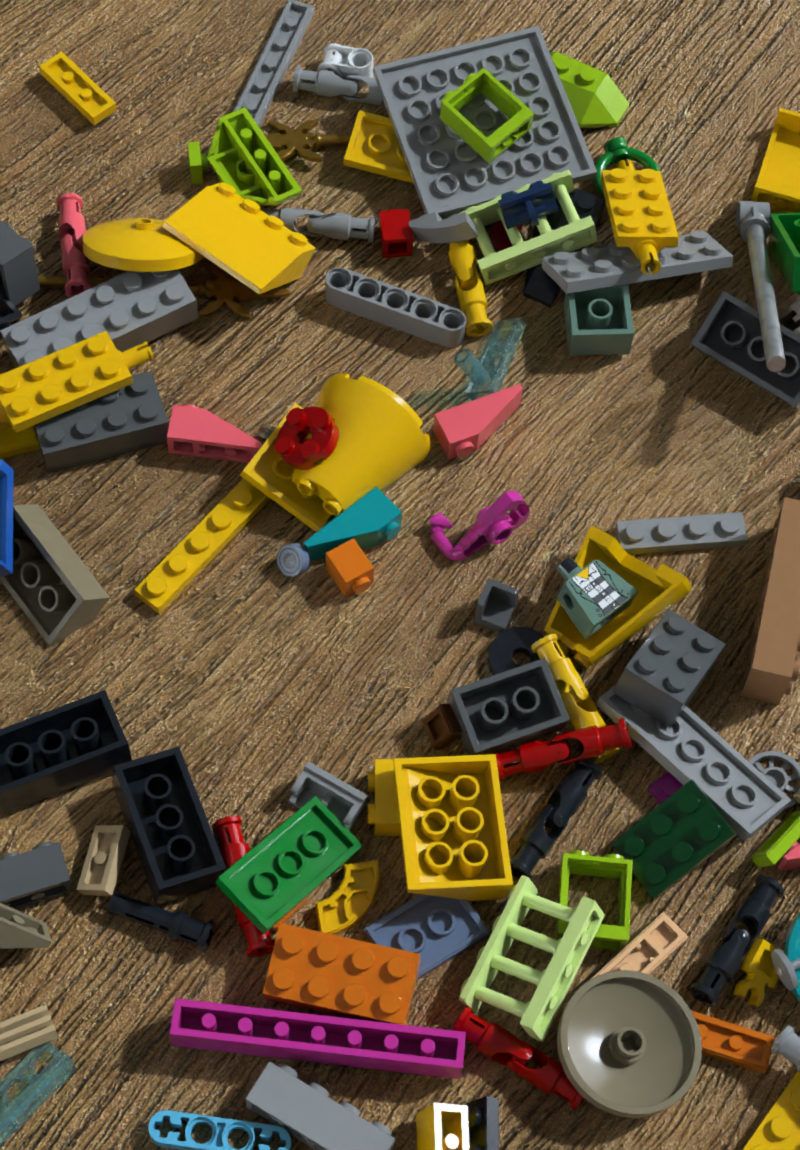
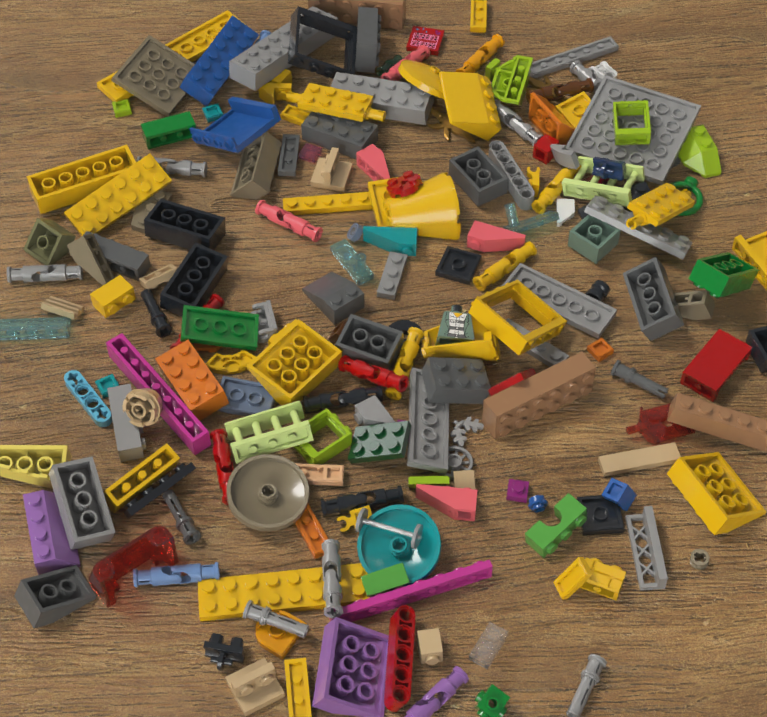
camera: 50 degrees right, 10 degrees down
(45, 180) = (425, 36): none -> red tile
(49, 262) = (388, 64): none -> clear green pin
(66, 514) = (289, 155): none -> dark grey plate
(74, 950) = (113, 296): none -> yellow brick
(87, 486) = (310, 152): none -> clear pink tile
(154, 494) = (331, 172): none -> tan bracket
(157, 151) = (482, 55): none -> light orange piece
(202, 613) = (289, 221): none -> coral piece
(223, 1091) = (104, 383): none -> teal tile
(325, 132) = (569, 89): none -> reddish brown piece
(334, 607) = (352, 262): none -> clear light blue piece
(347, 1081) = (143, 406): none -> tan cone
(350, 568) = (374, 251): orange brick -> none
(358, 187) = (548, 119): none -> orange slope
(362, 343) = (478, 176): none -> dark grey brick
(370, 677) = (335, 296): none -> dark grey slope
(407, 582) = (392, 275): none -> light grey plate
(430, 288) = (534, 180): none -> yellow plate
(466, 492) = (458, 265): none -> black tile
(492, 526) = (447, 278): dark pink animal -> none
(496, 605) = (415, 307): dark grey panel -> none
(509, 304) = (565, 209): none -> white tile
(532, 467) = (503, 267): none -> yellow piece
(620, 807) = (371, 412): none -> light grey slope
(646, 444) = (574, 306): none -> light grey plate
(680, 394) = (598, 290): none -> black wheel
(686, 481) = (531, 303): none -> yellow window
(733, 715) = (467, 424): none -> light grey animal
(740, 611) = (511, 381): none -> red tile
(753, 222) = (719, 247): flat silver piece -> none
(762, 472) = (600, 349): none -> orange tile

